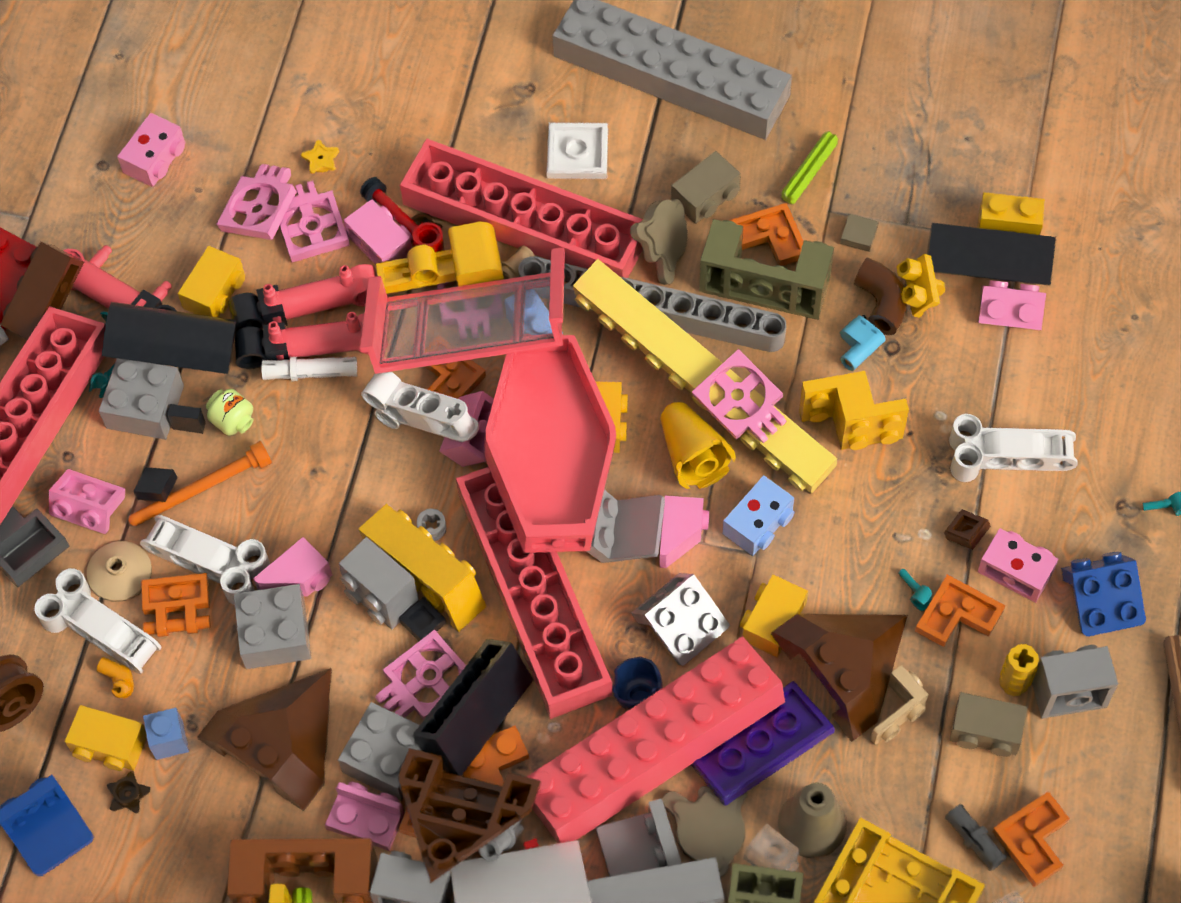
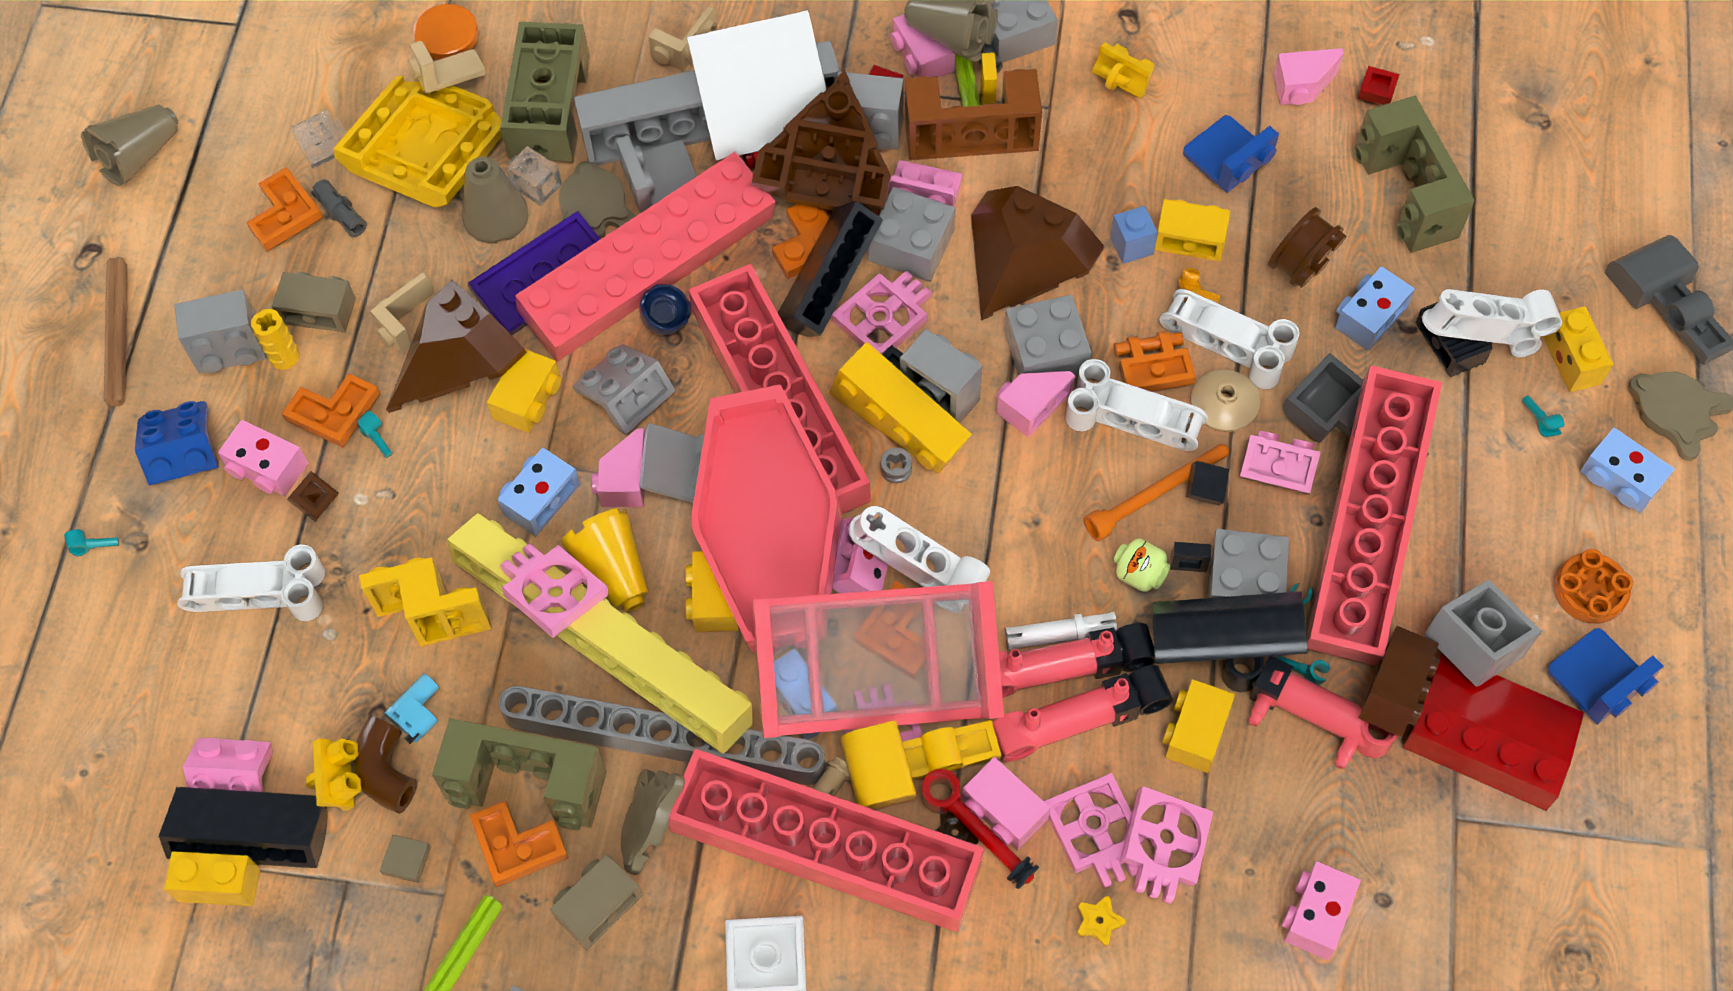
camera: 175 degrees right, 0 degrees up
(123, 785) = (1156, 187): dark brown plate -> none

